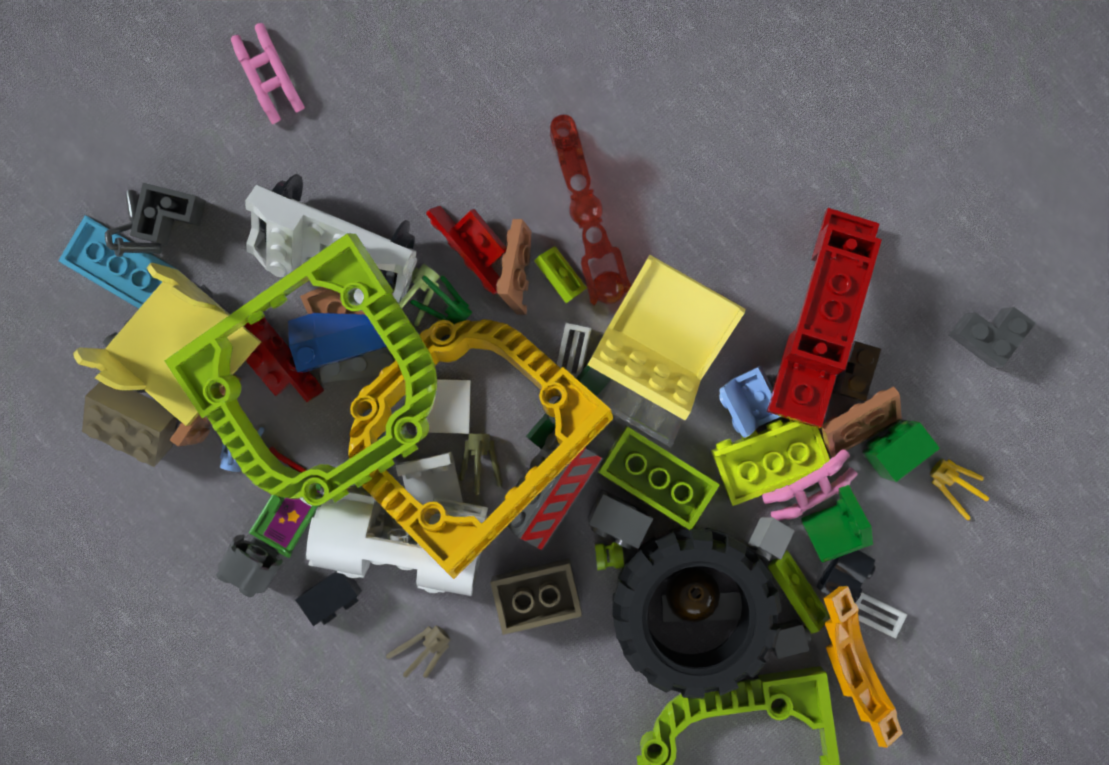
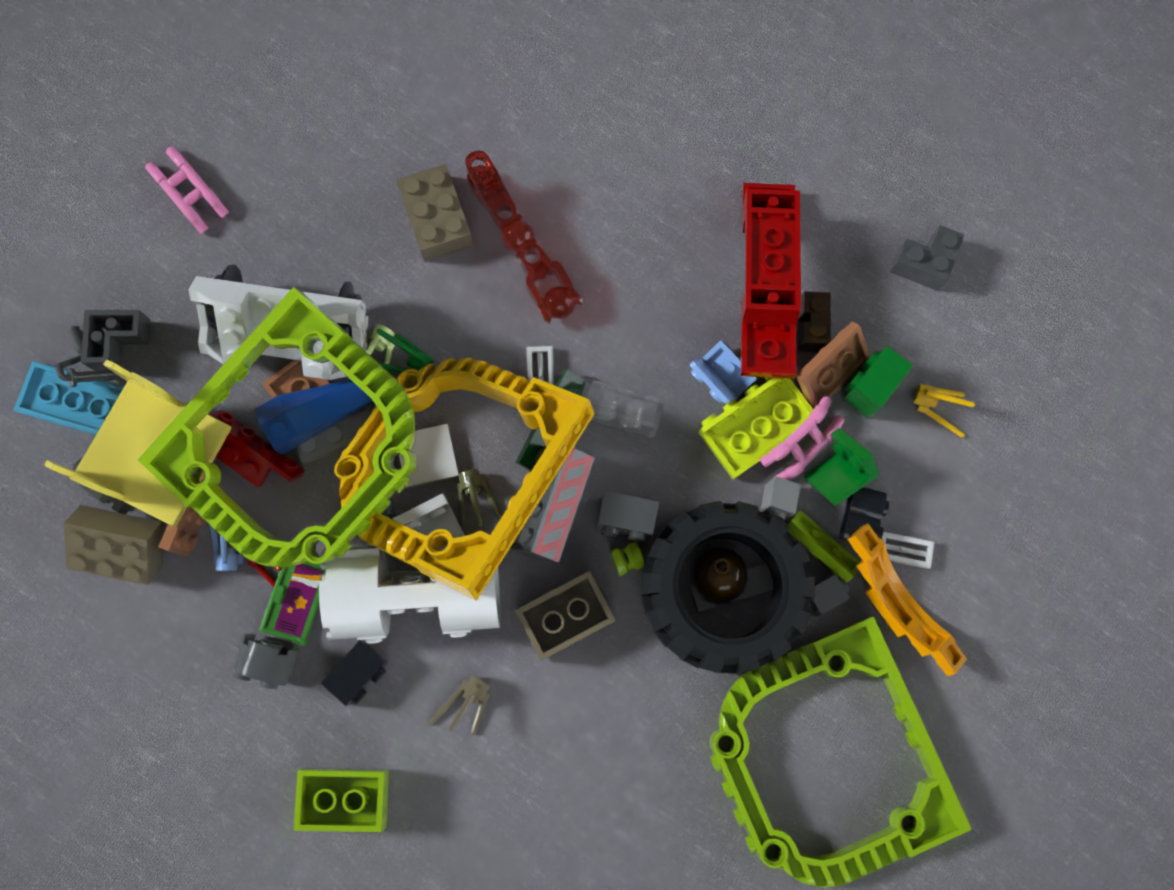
camera: 15 degrees left, 10 degrees down
(291, 707) = (341, 799): none -> lime brick
(473, 242) = (421, 293): red bracket -> none
(508, 161) = (435, 212): none -> dark tan brick
(517, 256) = (463, 297): nougat wing -> none
(560, 274) = (509, 303): lime plate -> none
(658, 477) = (654, 467): lime brick -> none
(665, 336) = (625, 326): light yellow bracket -> none

